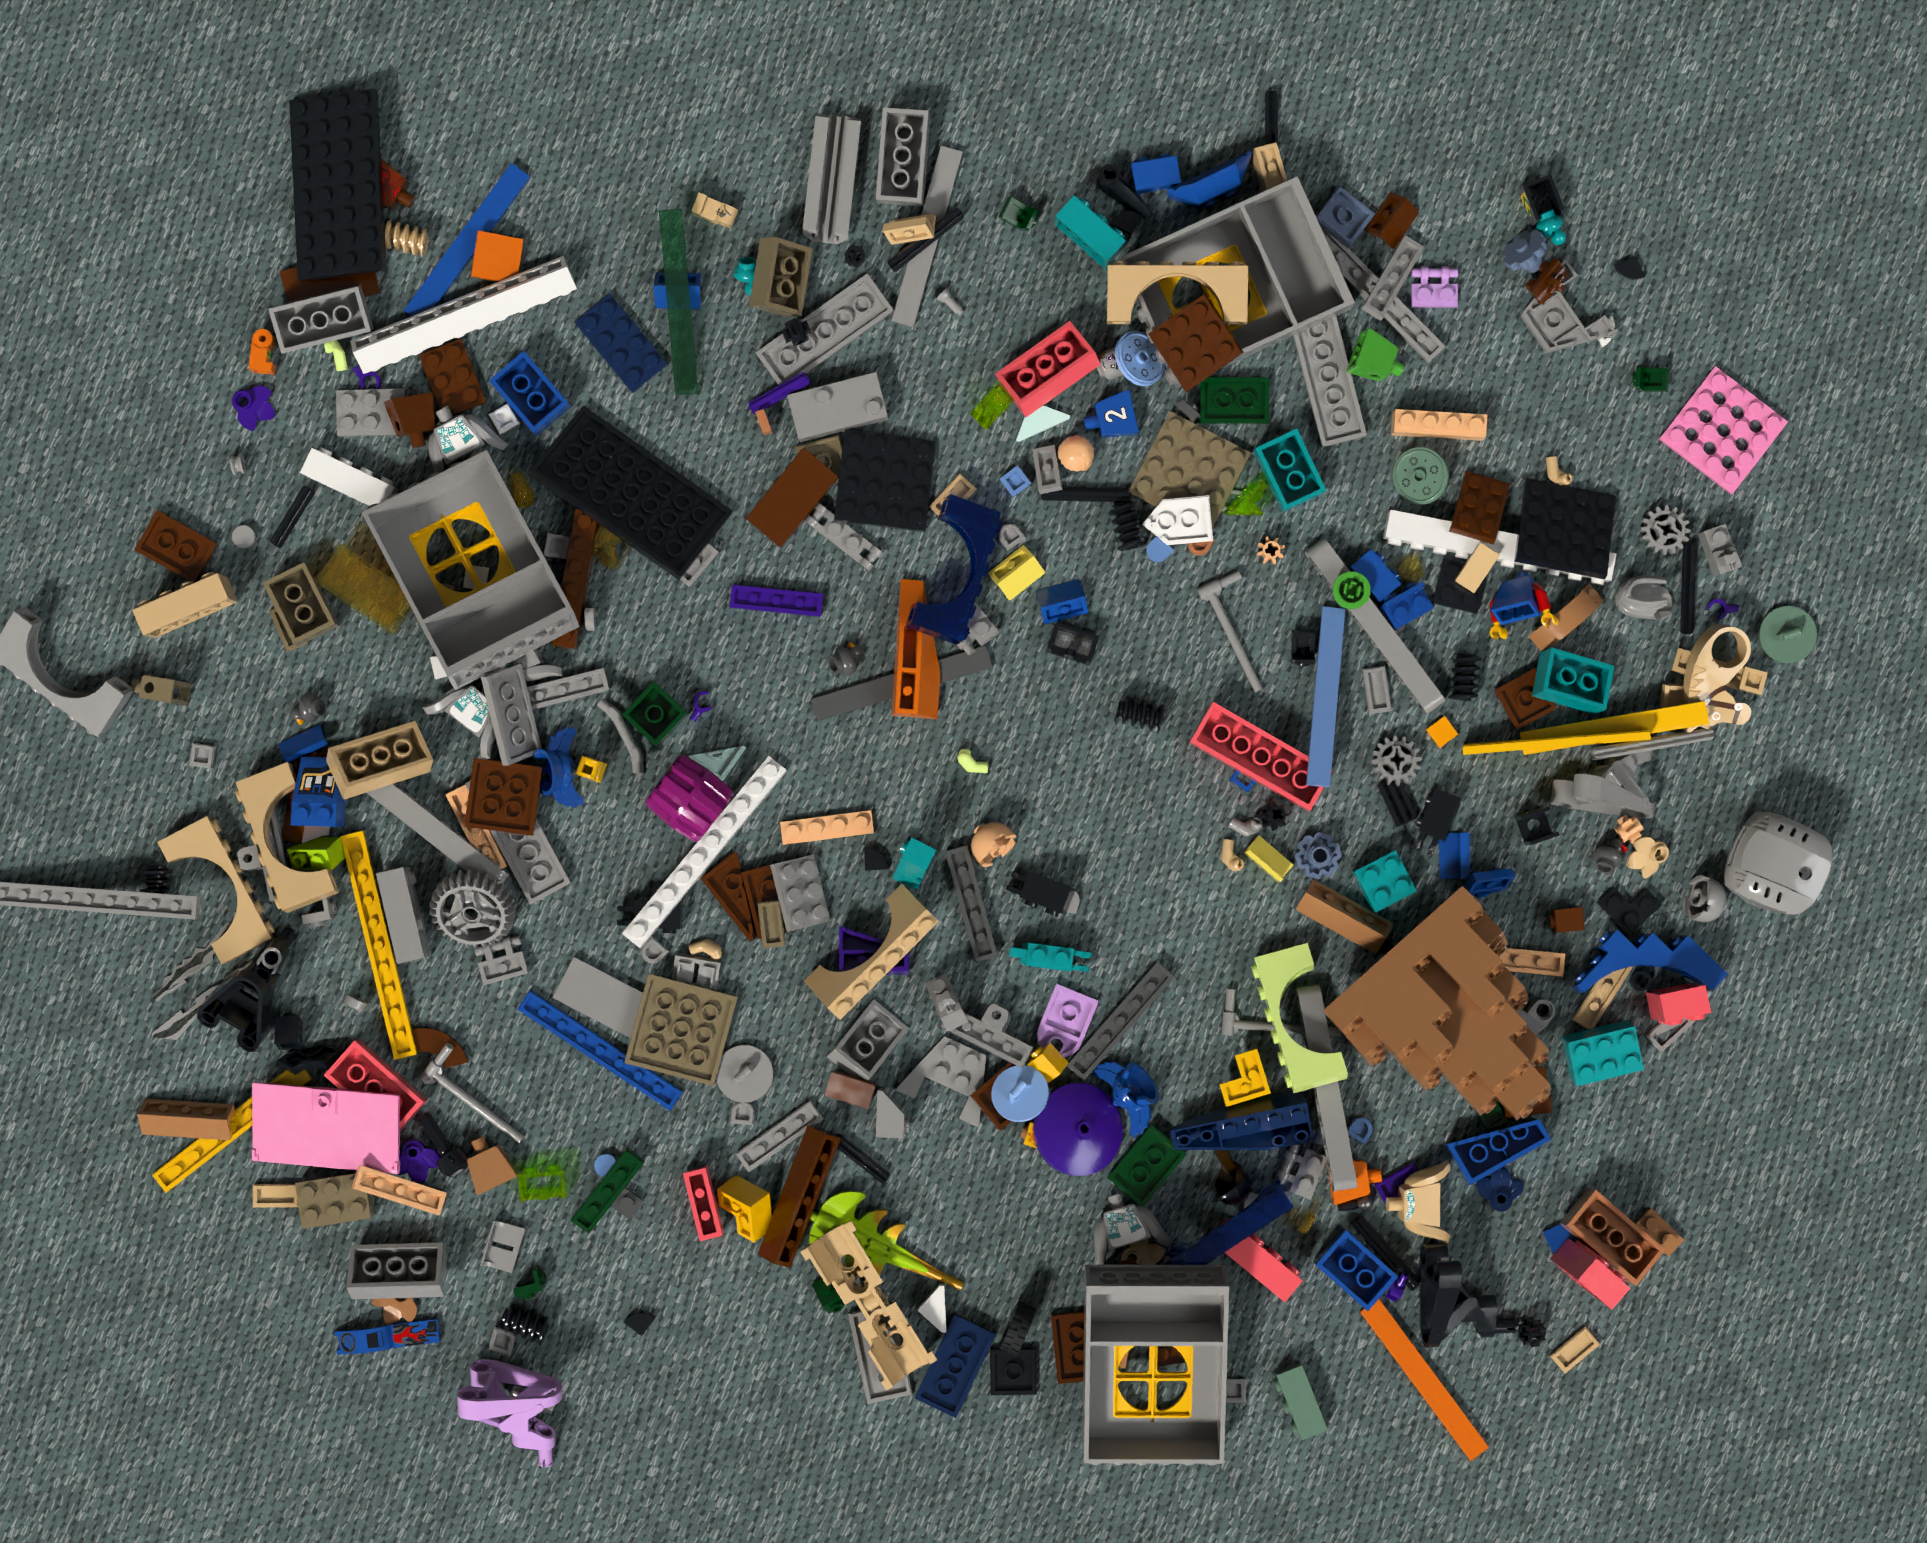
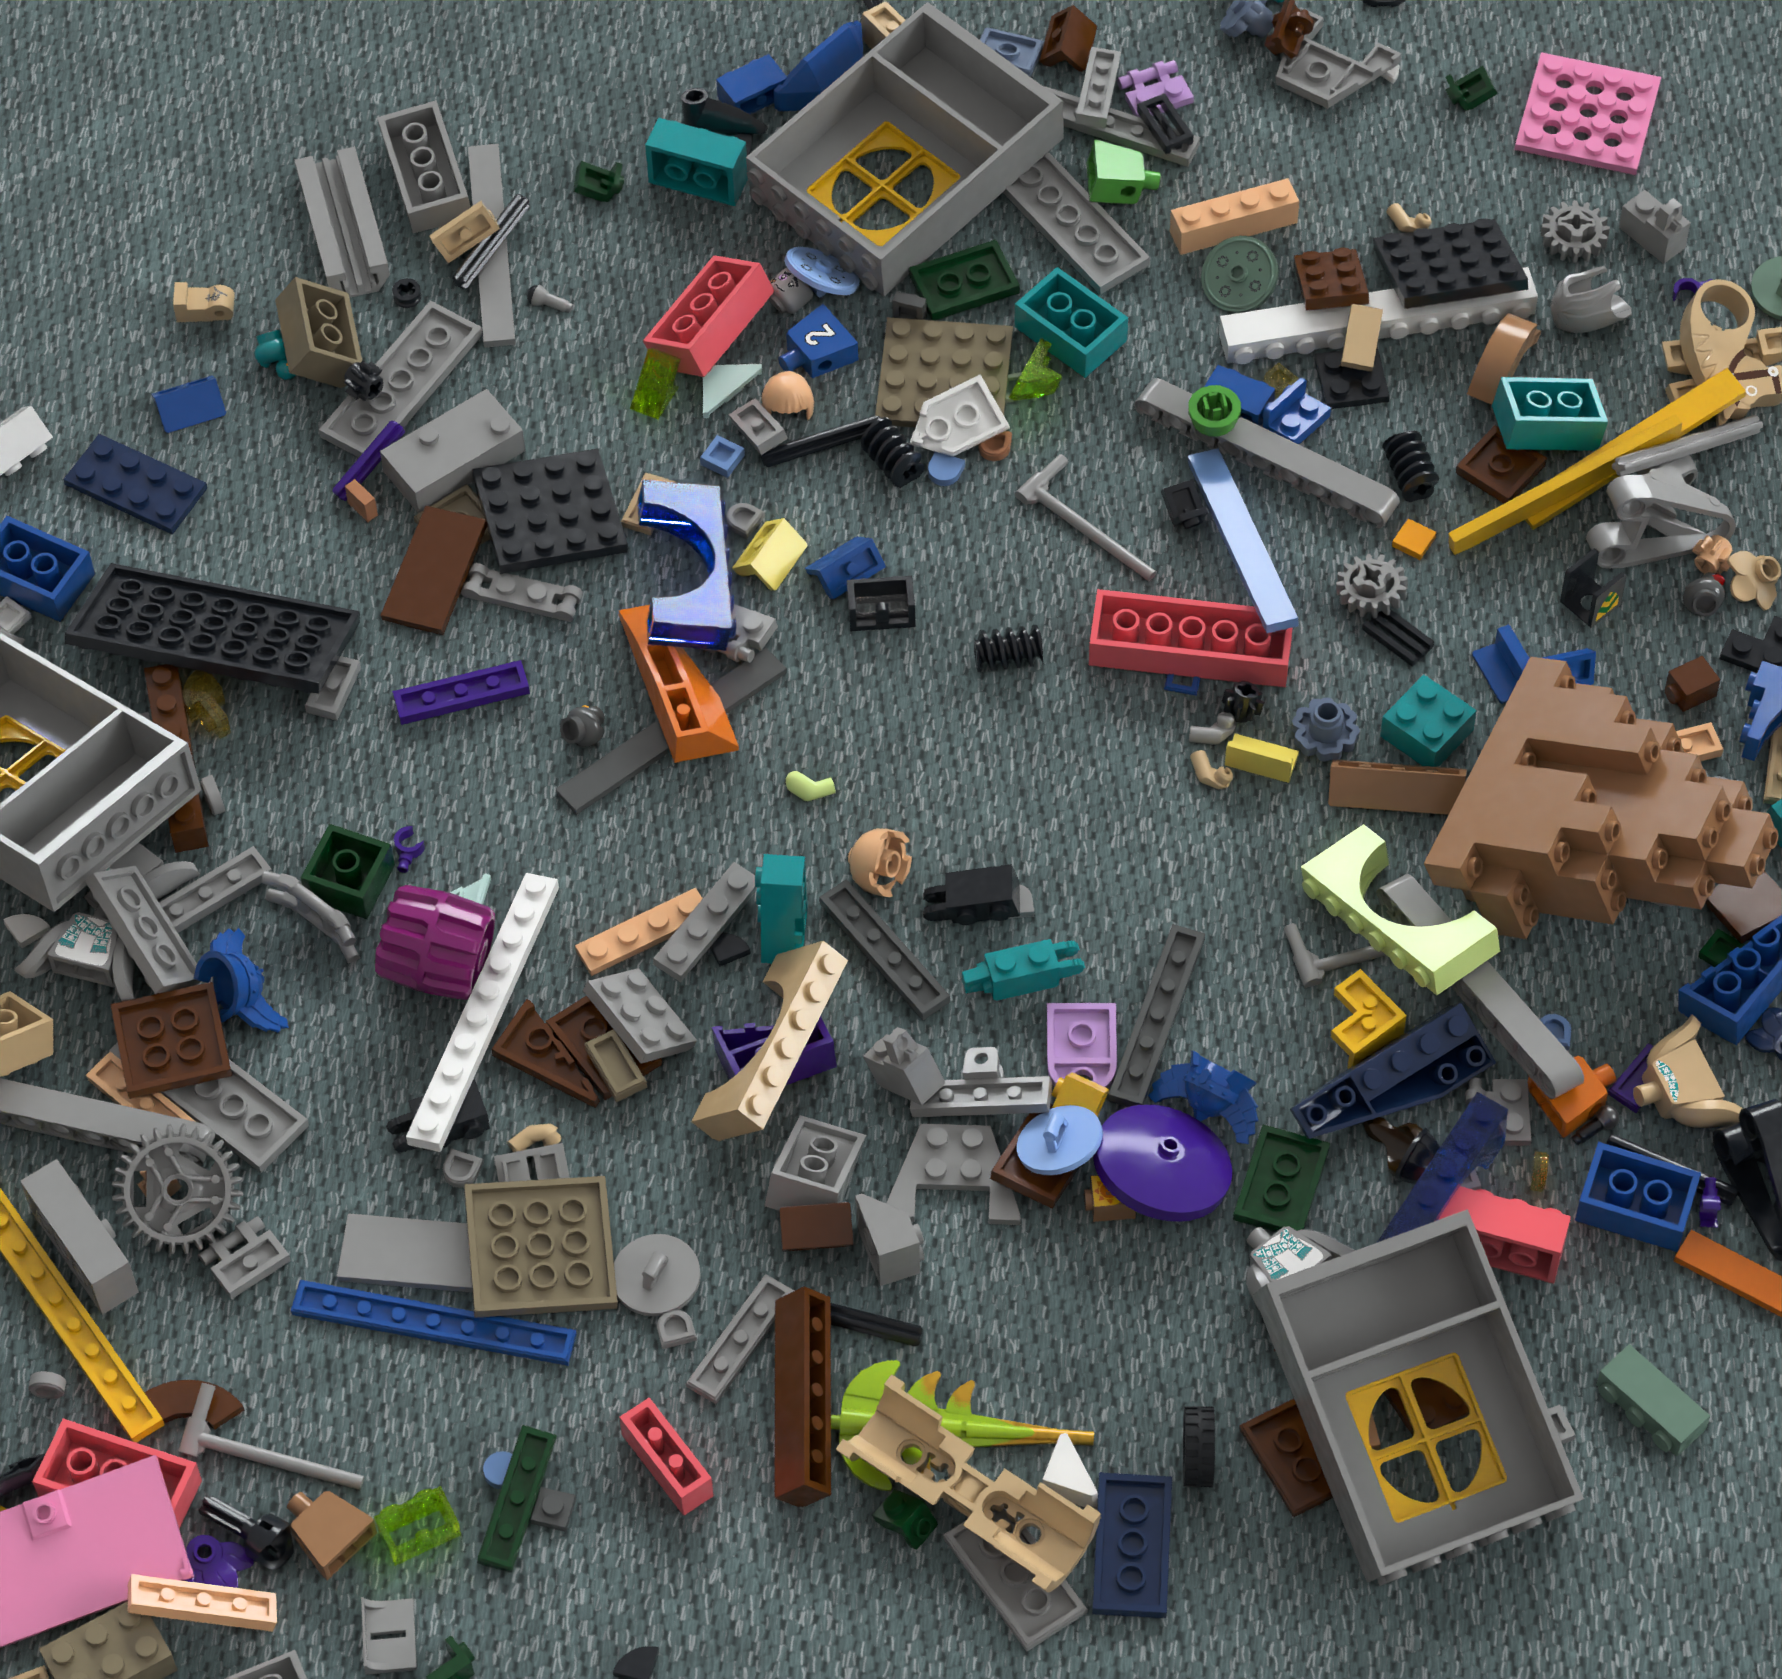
camera: 20 degrees left, 30 degrees down
(591, 769) = (282, 966): yellow leg -> none
(678, 301) = (195, 403): clear green tile -> none
(748, 1204) = (737, 1436): yellow panel -> none
(867, 841) = (706, 922): none -> light grey plate
(1013, 1373) = (1221, 1524): black tile -> none
(1195, 343) = (884, 199): reddish brown plate -> none
(1226, 283) = (888, 128): tan arch -> none
(1273, 544) = (1089, 417): light nougat gear -> none
(1376, 690) = (1305, 523): light grey tile -> none
(1426, 347) = (1185, 134): none -> black tile
(1437, 818) = (1461, 628): black hinge -> none
(1518, 601) = (1432, 355): blue torso -> none
(1688, 589) = (1639, 284): black axle -> none

